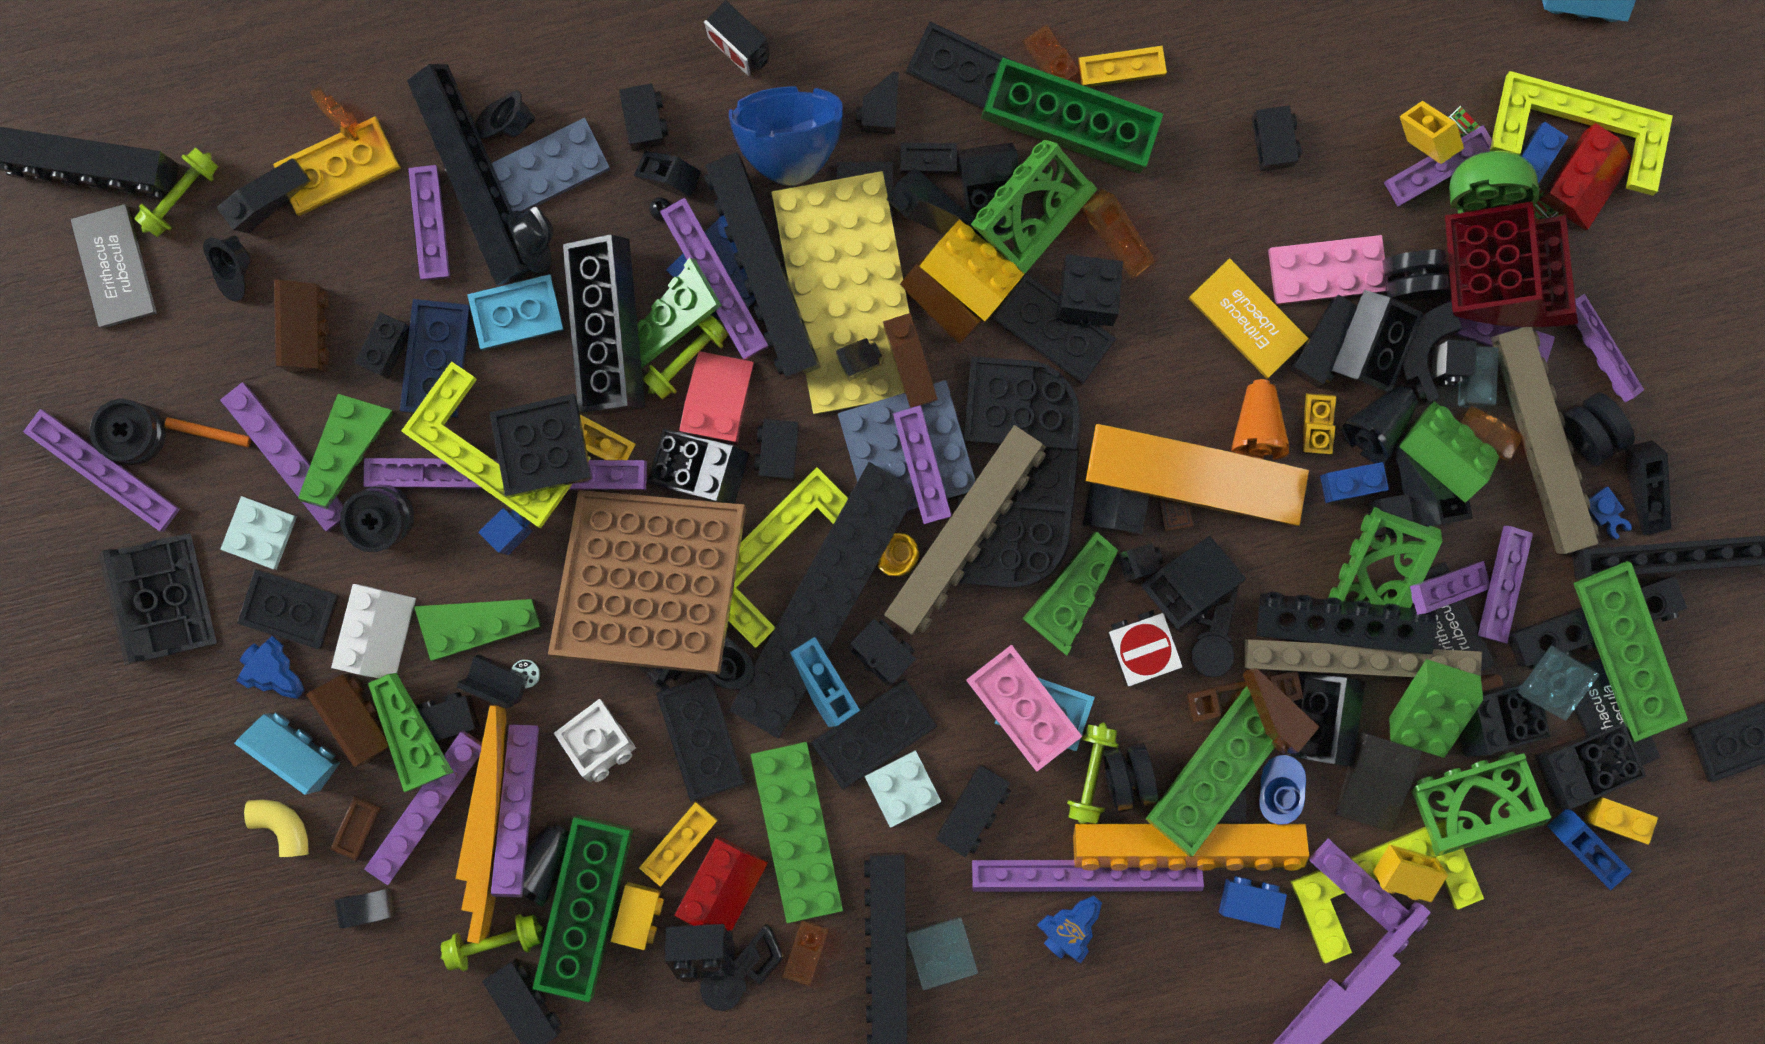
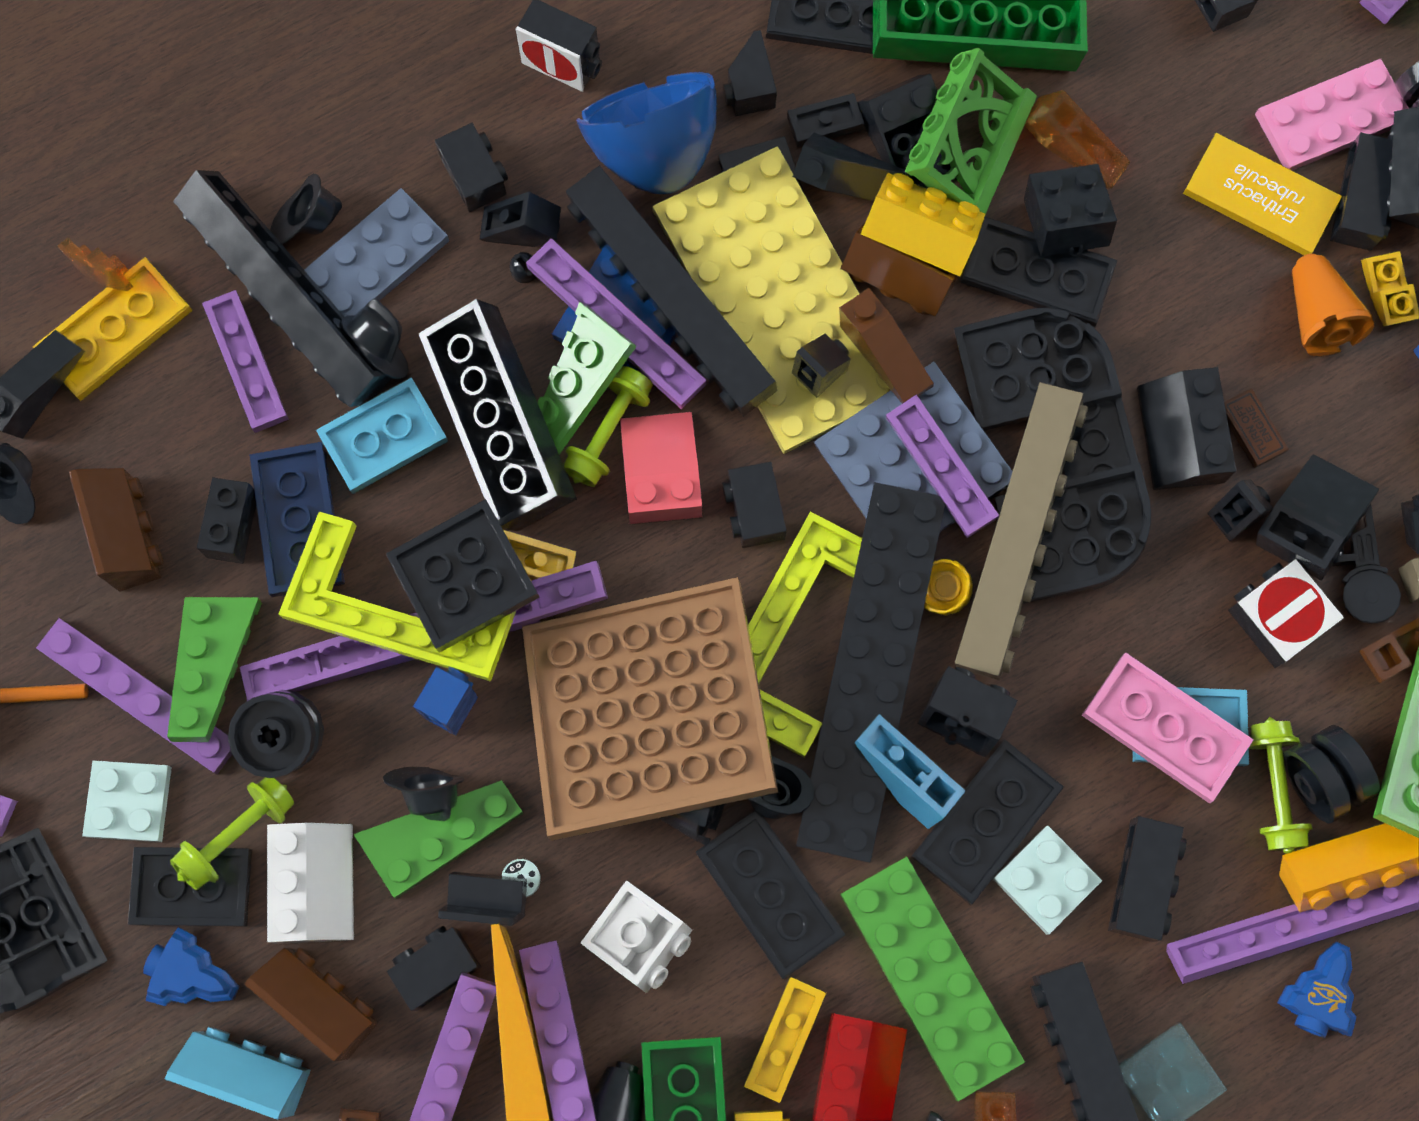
camera: 15 degrees left, 10 degrees down
(292, 599) = (194, 865): none -> lime piece
(408, 737) = (397, 1006): bright green wing -> none
(473, 590) = (426, 790): none -> black piece
(698, 467) = (663, 553): black slope -> none
(1066, 601) = (1170, 577): bright green wing -> none
(1197, 475) = (1276, 382): light orange slope -> none

